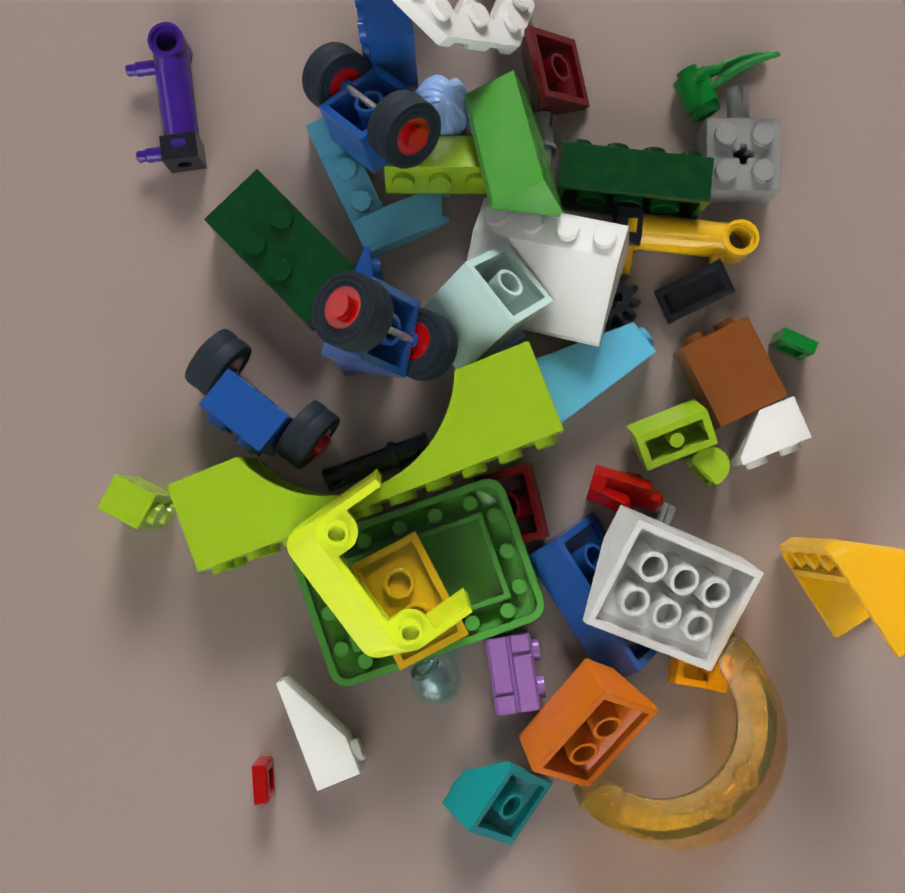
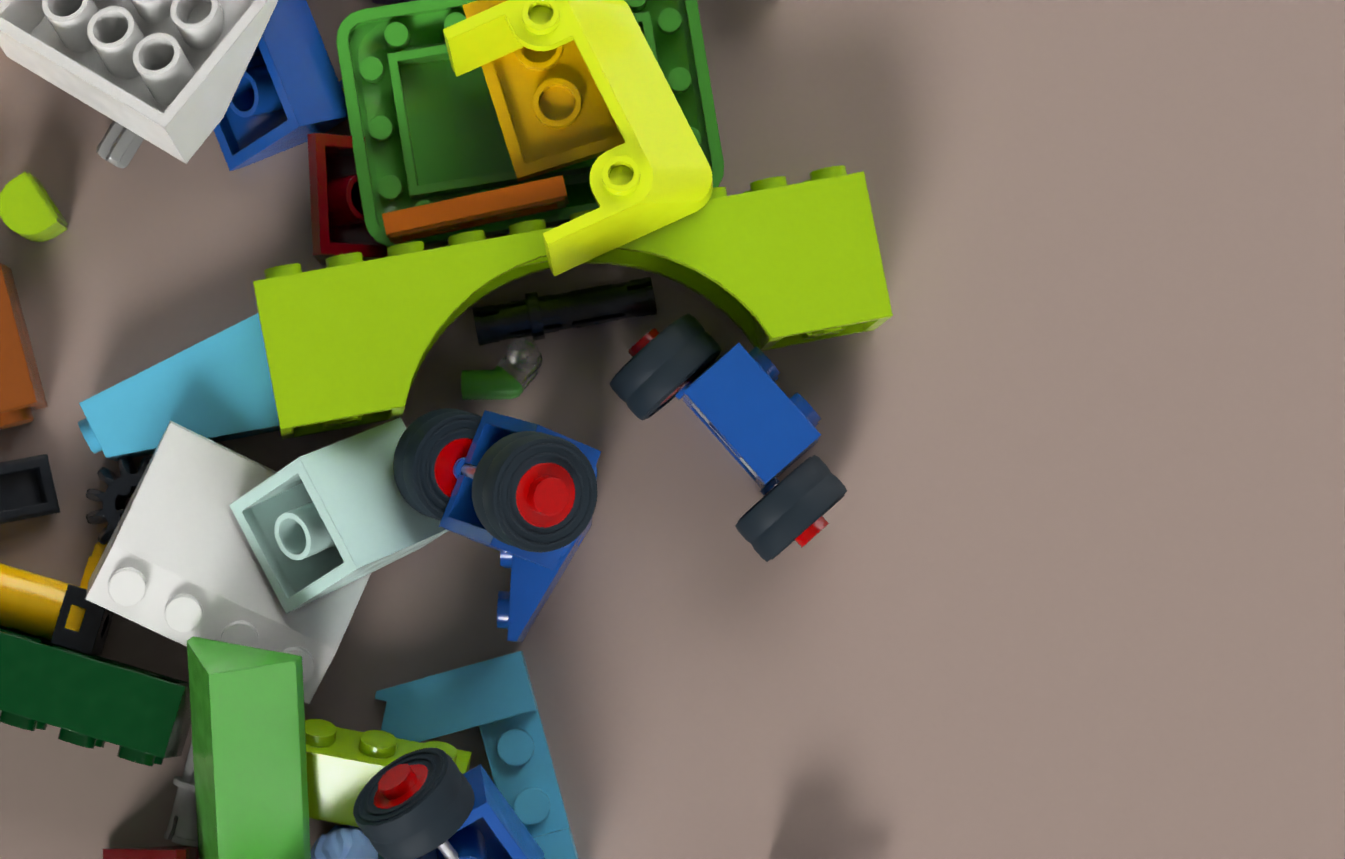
camera: 170 degrees left, 0 degrees up
(137, 502) = (951, 304): lime brick -> none
(277, 243) = (654, 682): dark green brick -> none
(404, 416) = (508, 378): none -> arm
(436, 507) = (476, 210): none -> orange tile
(619, 488) = (177, 194): red rock -> none
(672, 434) = (80, 267): lime brick -> none

